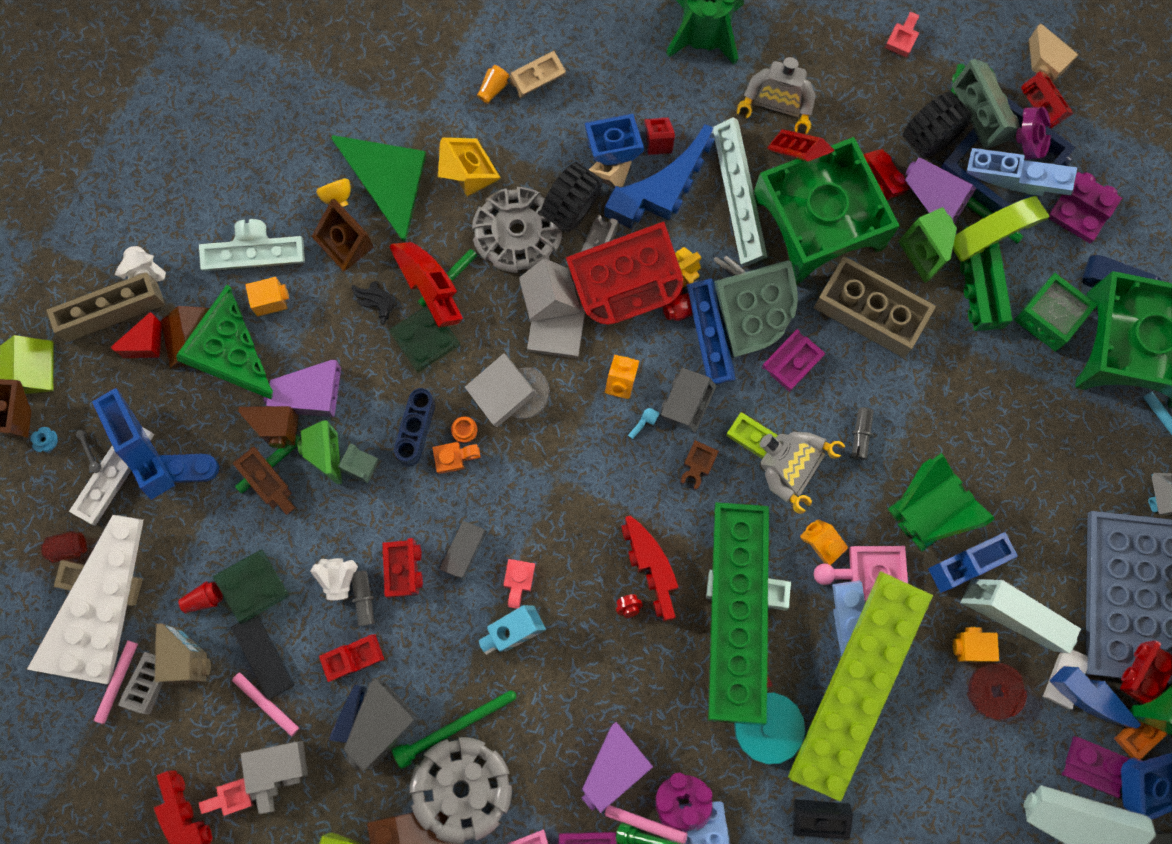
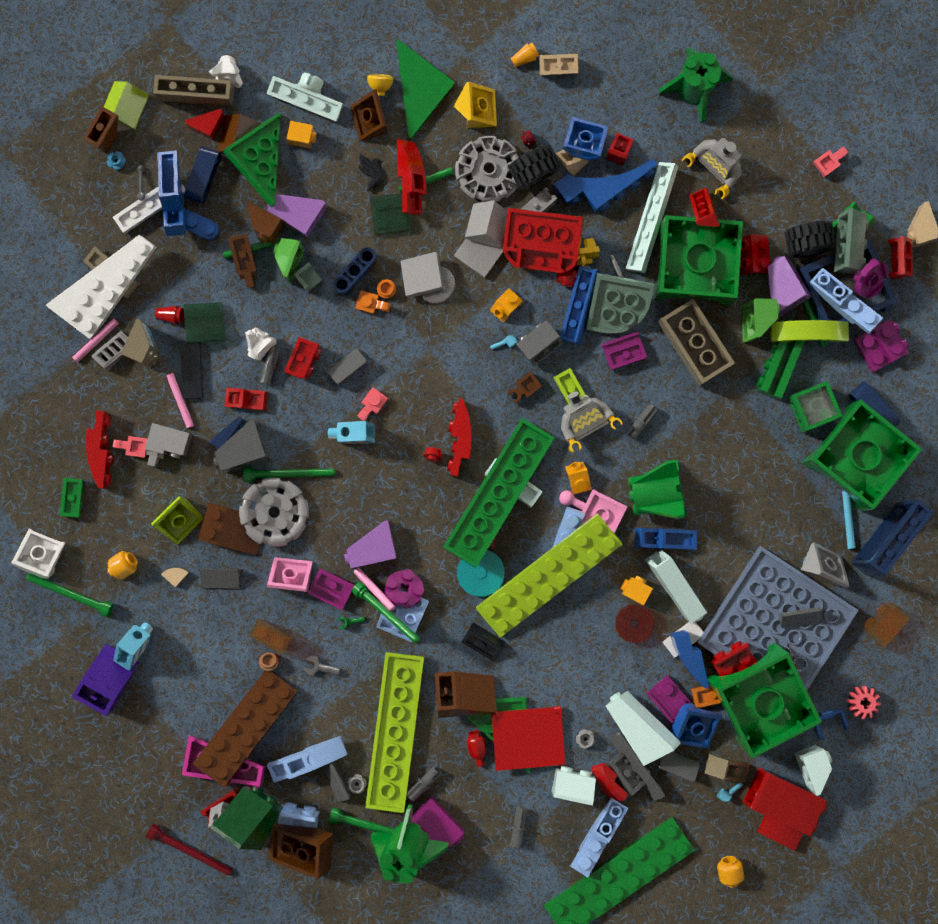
camera: 30 degrees right, 10 degrees up
(64, 546) = (100, 238): clear red brick -> none
(164, 403) = (202, 174): none -> dark blue beam
(545, 173) = (528, 138): none -> dark red plate

